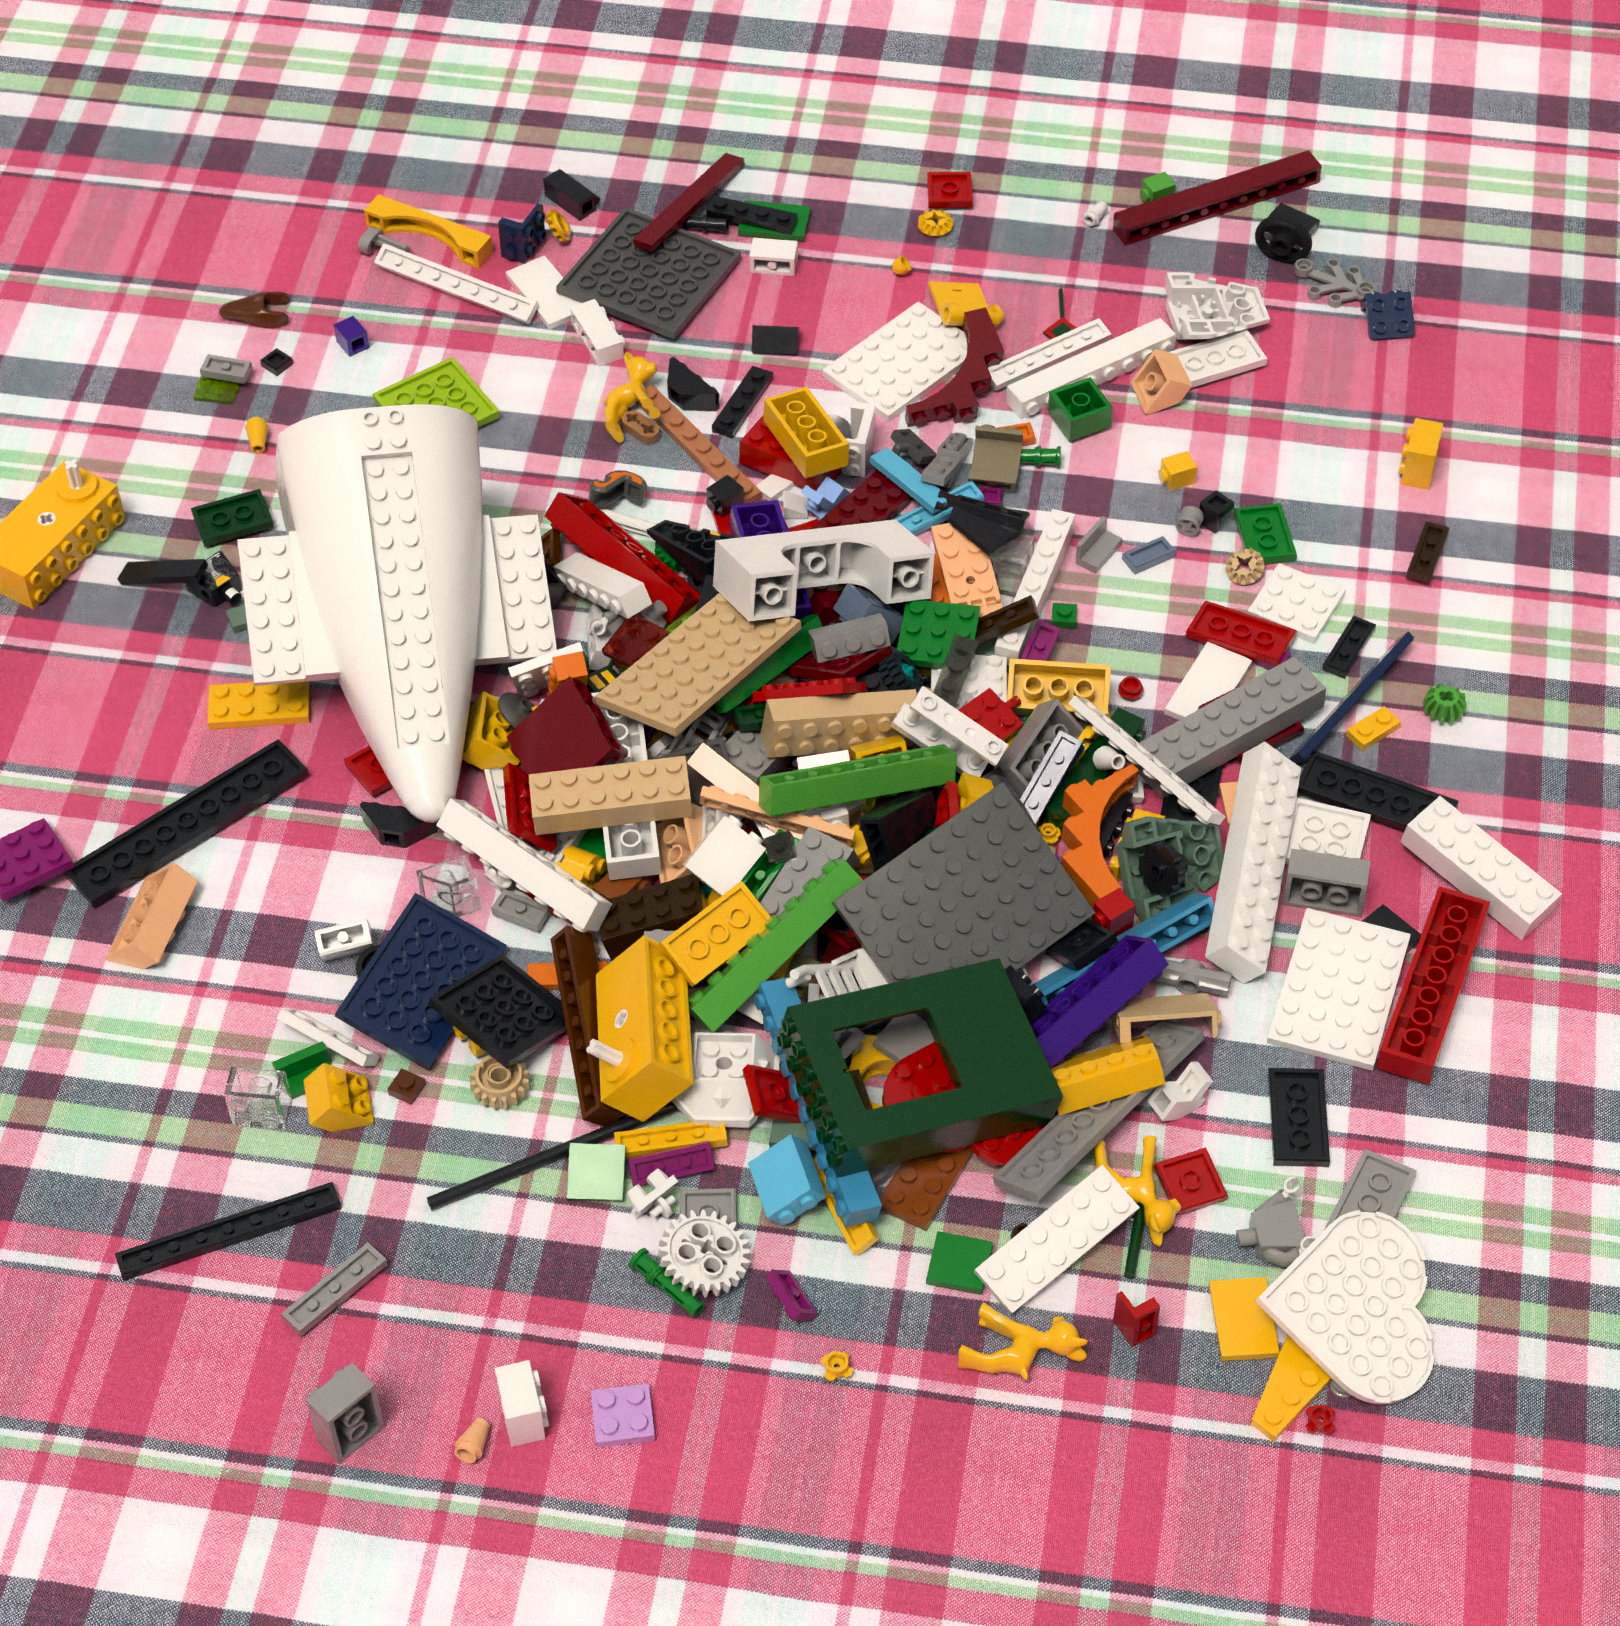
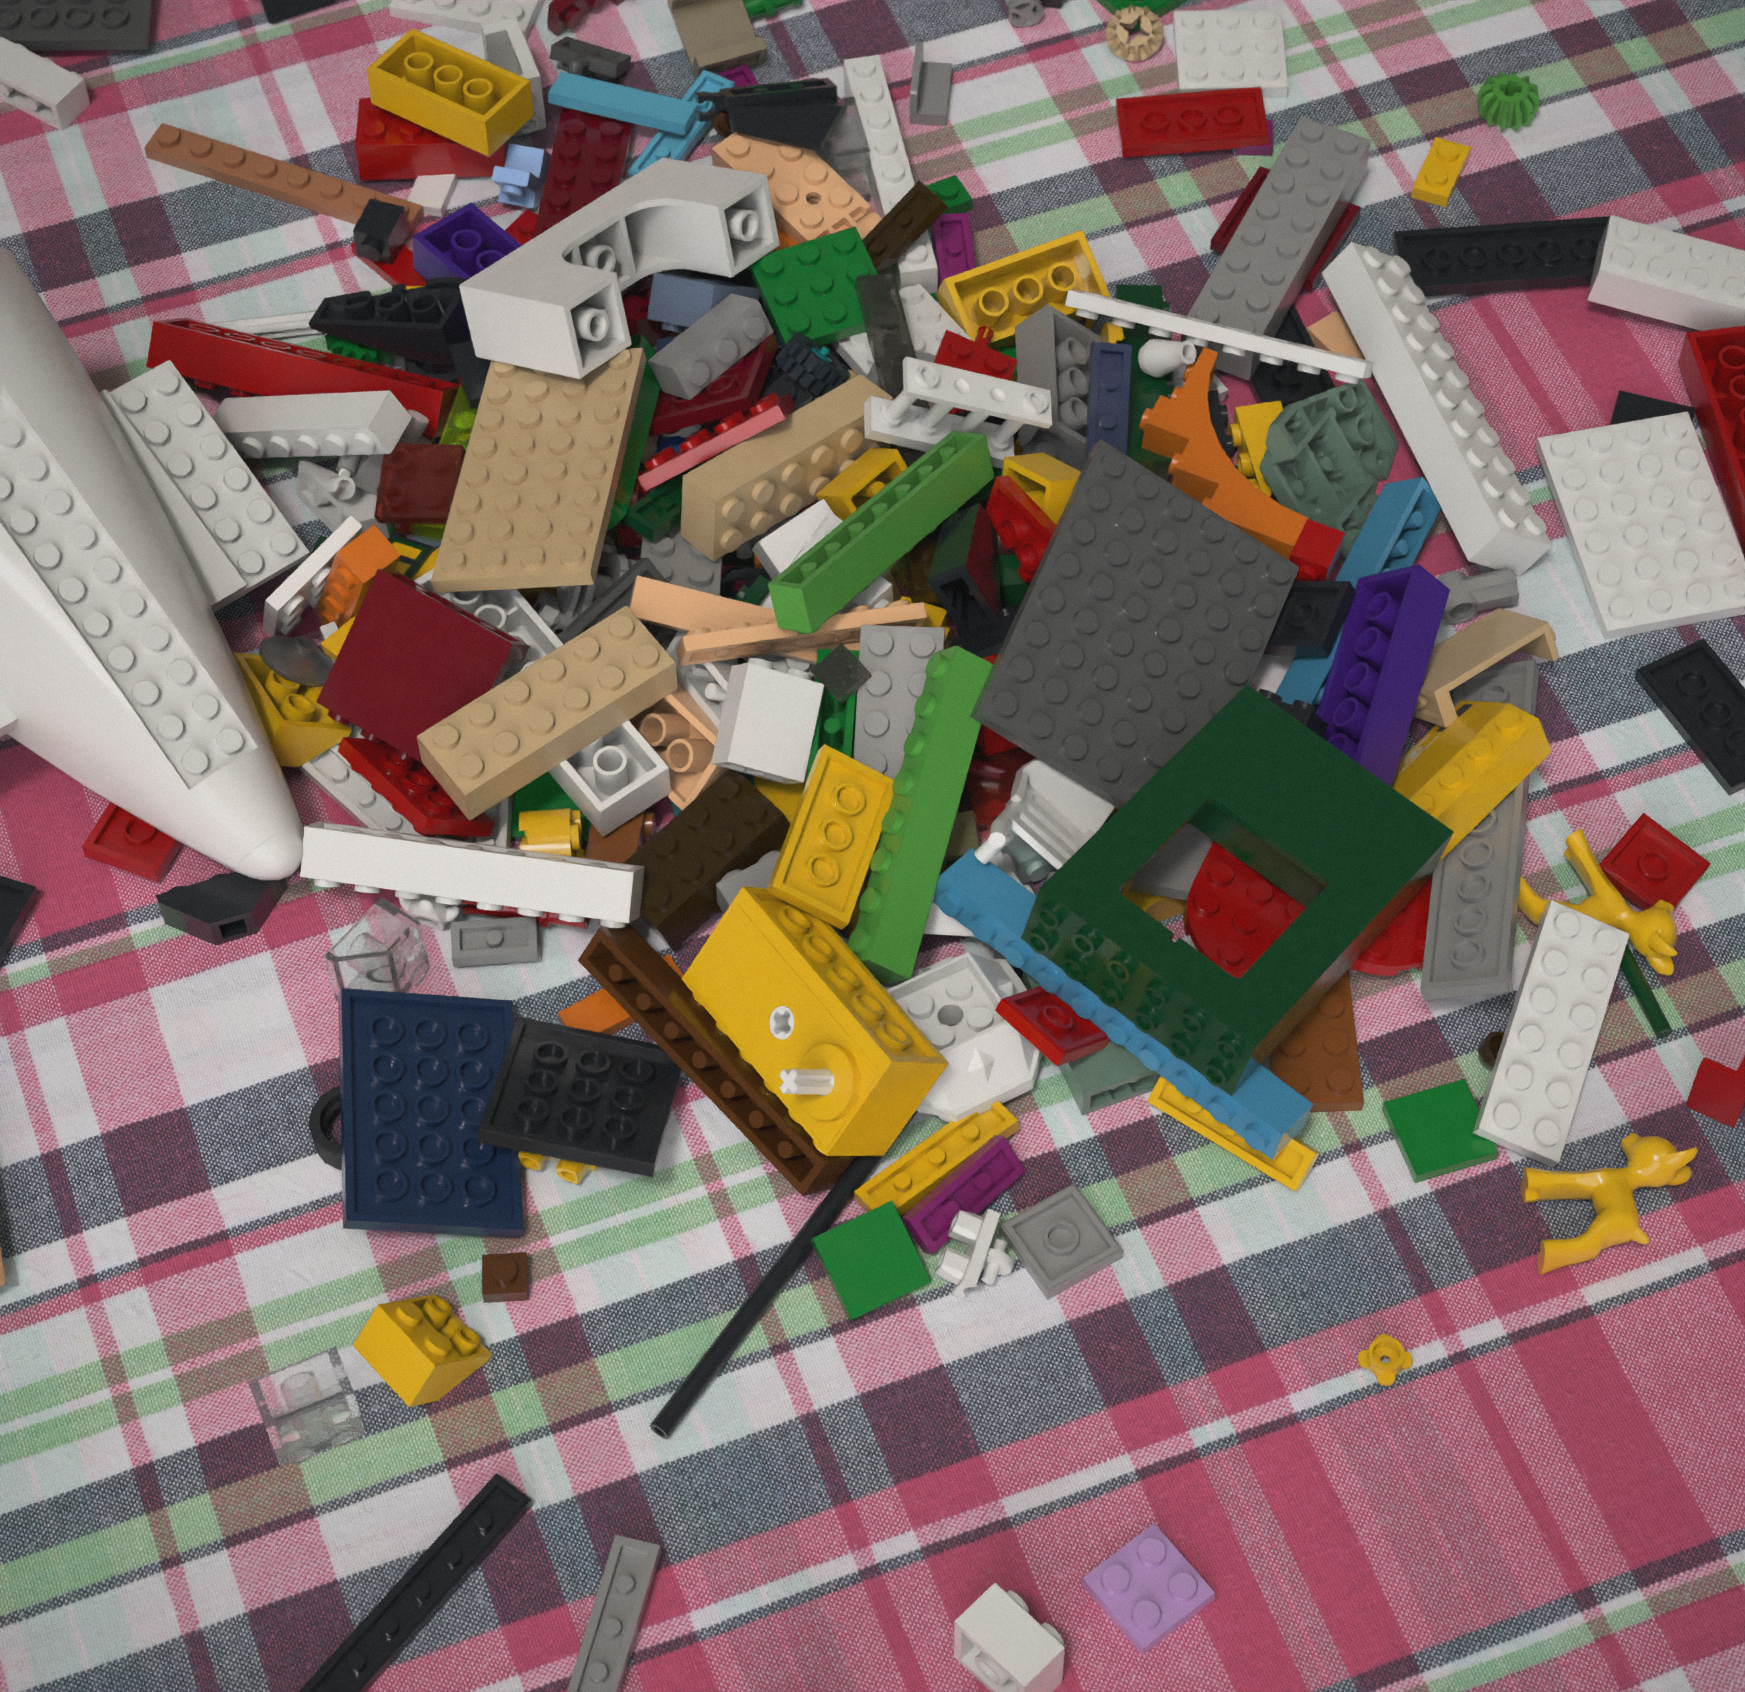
camera: 30 degrees left, 5 degrees up
(301, 1065) = (336, 1324): green panel -> none
(329, 1037) = (342, 1263): white tile -> none
(344, 939) = (271, 1108): white brick -> none
(501, 1093) = (639, 1222): tan gear -> none
(617, 485) = (216, 279): dark grey animal -> none
(629, 394) = (140, 150): yellow animal -> none
(638, 429) = (186, 189): medium nougat beam -> none
(655, 1276) = (1057, 1362): green pin -> none
(689, 389) = (221, 108): black slope -> none
(693, 1271) = (1105, 1297): white gear -> none
(742, 402) = (306, 96): black plate -> none
(787, 1180) = (1147, 1135): medium azure brick -> none
(791, 1295) = (1244, 1287): magenta plate -> none
(794, 506) = (483, 200): white slope -> none
(948, 461) = (650, 55): light grey slope -> none
(1130, 688) = (1106, 253): red plate -> none
(1148, 555) = (998, 71): sand blue tile -> none
(1162, 869) = (1338, 469): black plant -> none
(1181, 1096) = (1570, 746): white brick -> none
(1210, 676) = (1194, 201): white tile -> none
(1326, 882) = (1544, 391): light grey brick -> none
(1327, 829) = (1496, 337): white plate -> none
(1349, 647) = (1335, 81): black tile -> none
(1351, 698) = (1391, 143): dark blue tile -> none

